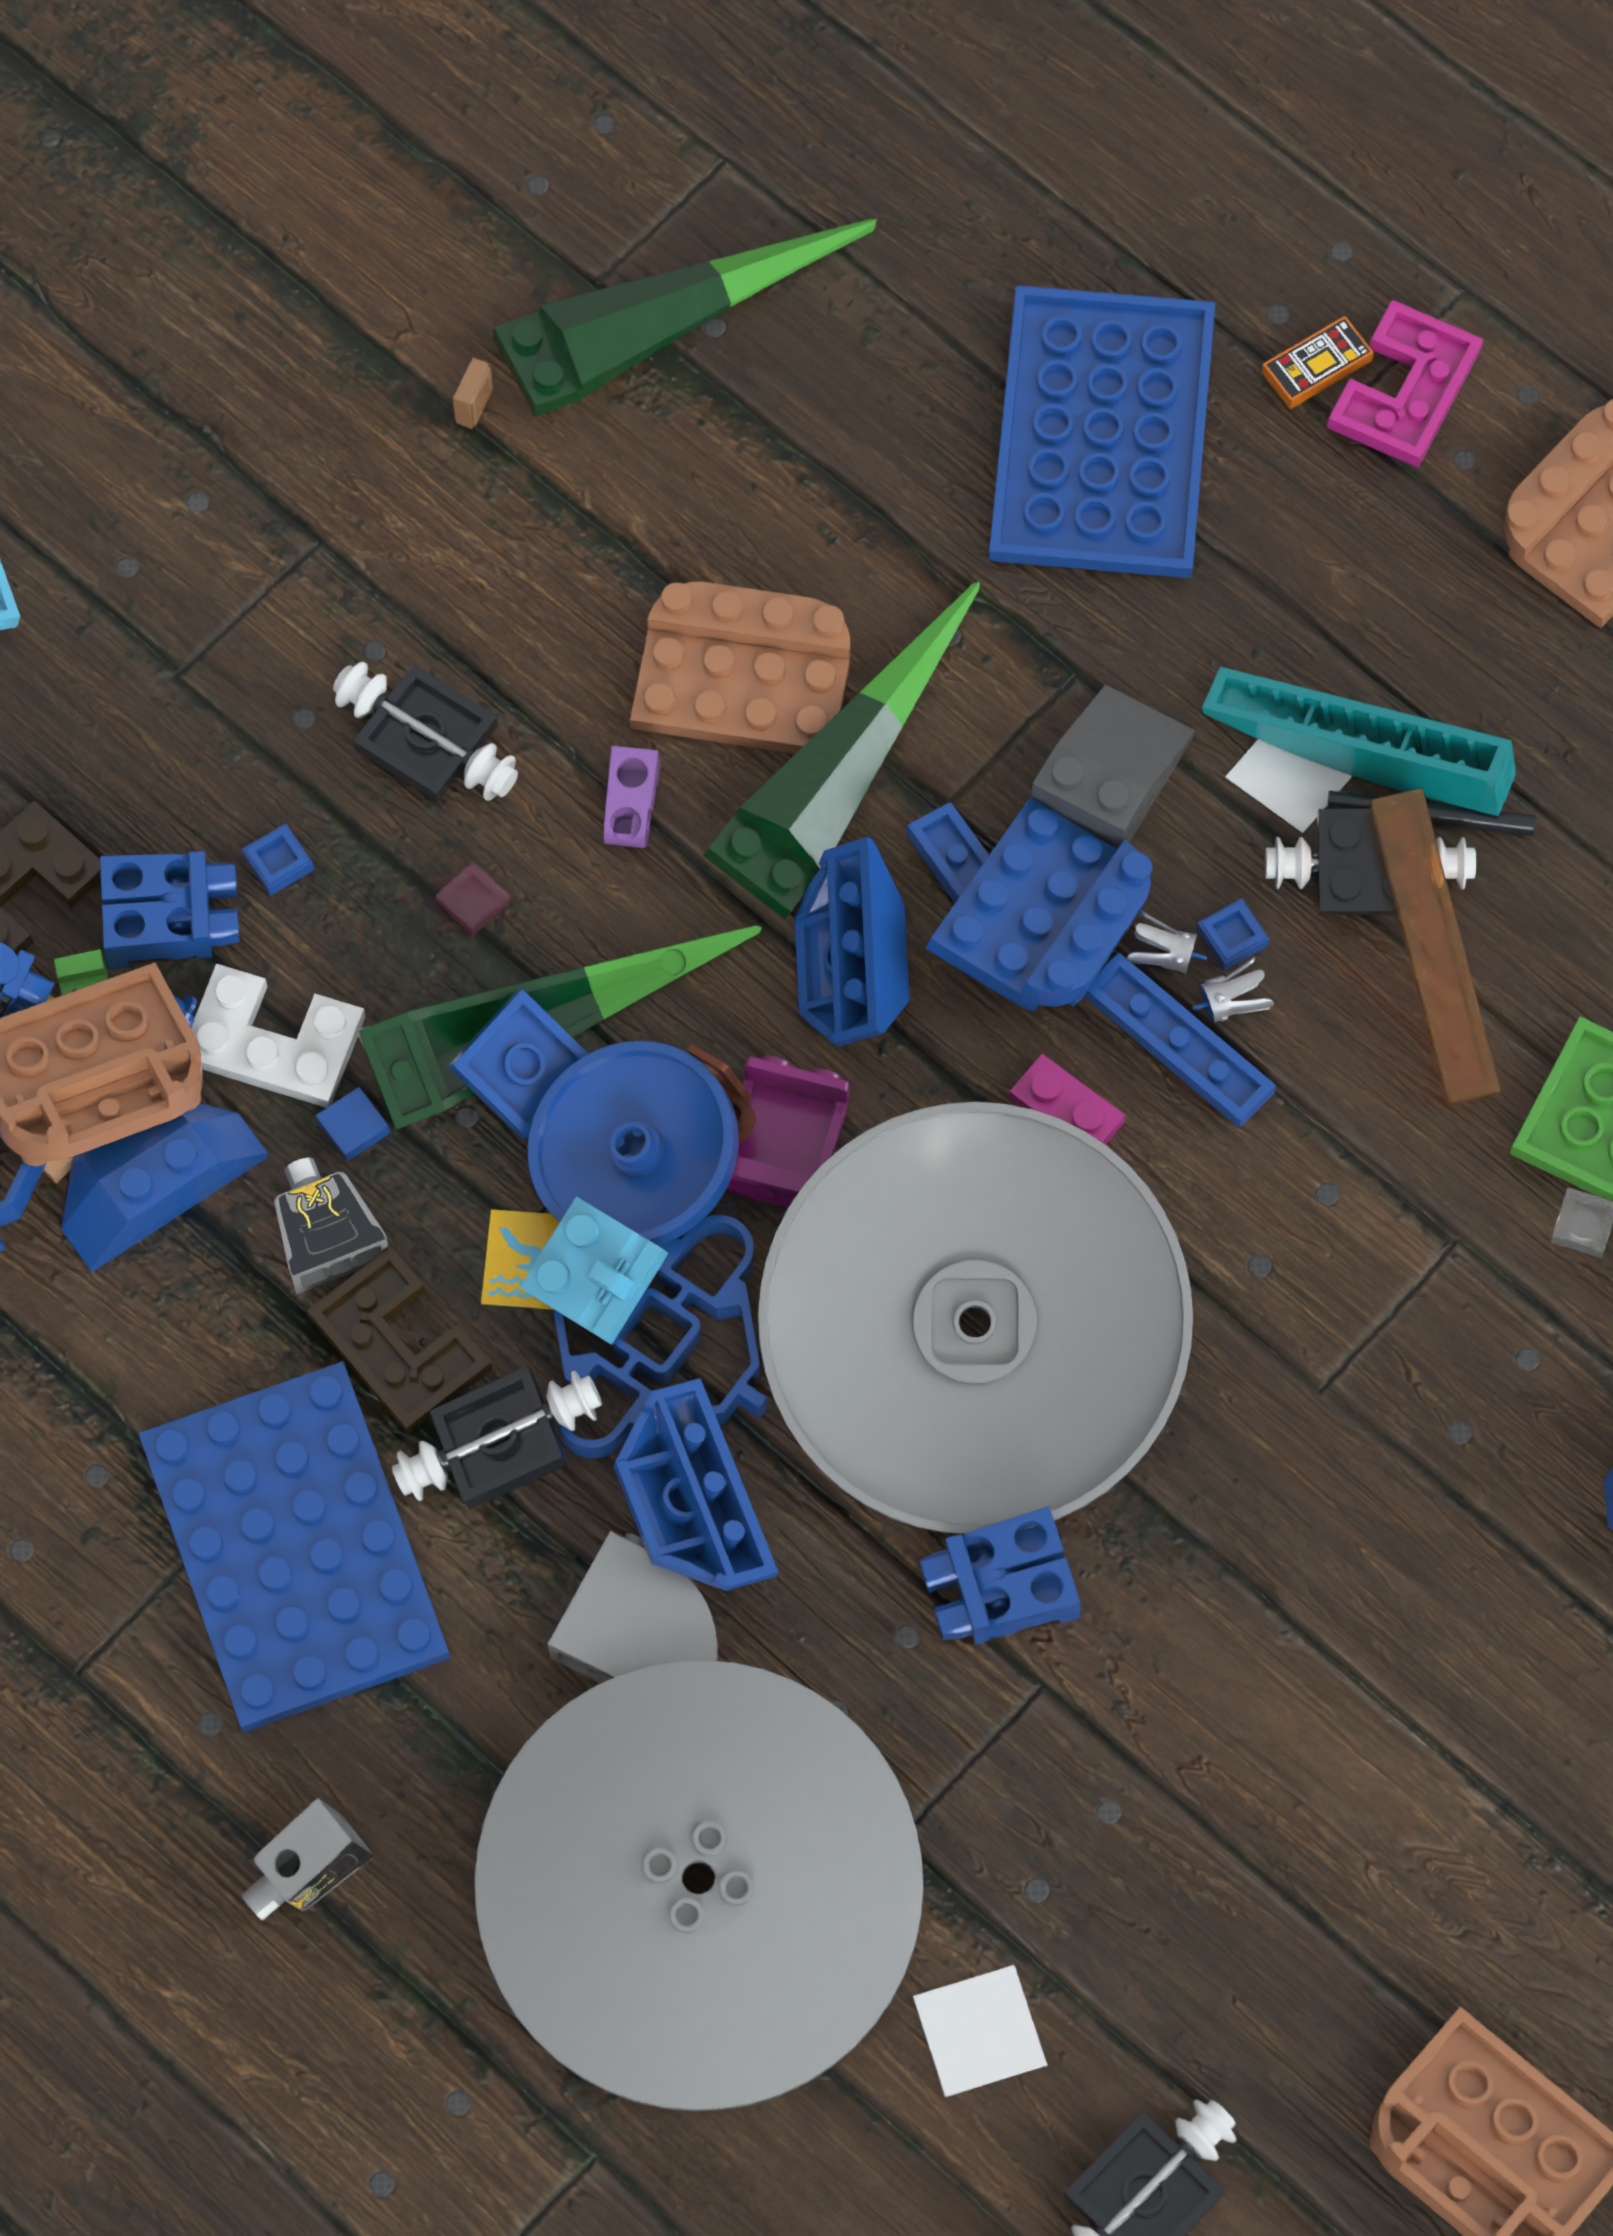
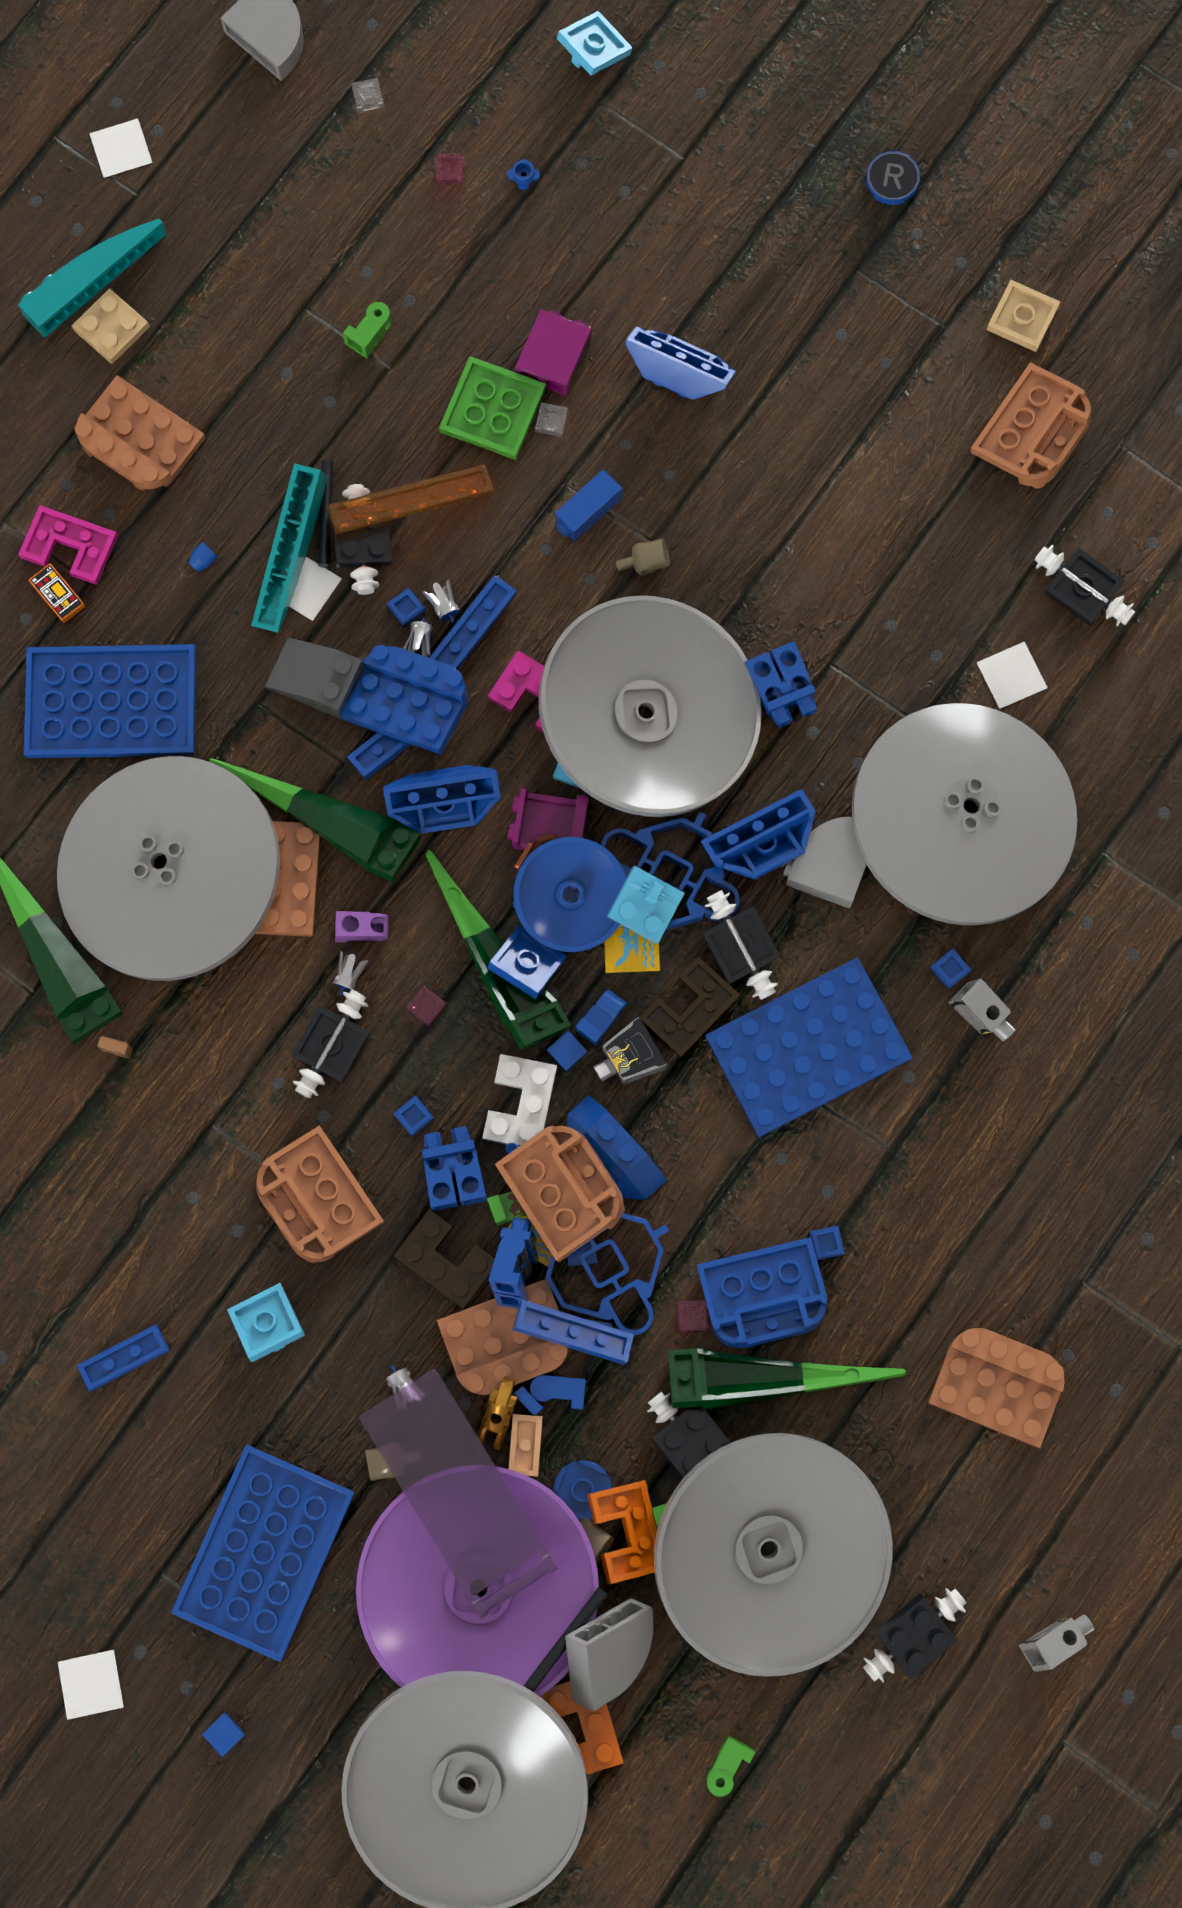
camera: 95 degrees left, 10 degrees up
(157, 683) = (315, 1198): none -> nougat plate
(401, 1182) = (601, 1017): none -> blue leg
(403, 1826) = (950, 968): none -> blue tile
(539, 764) = (344, 978): none -> flat silver piece
(765, 560) = (205, 897): none -> light grey dish
(1285, 1363) = (646, 557): none -> dark tan piece
(1363, 600) = (202, 557): none -> blue hose
(1400, 1267) = (588, 506): none -> blue brick

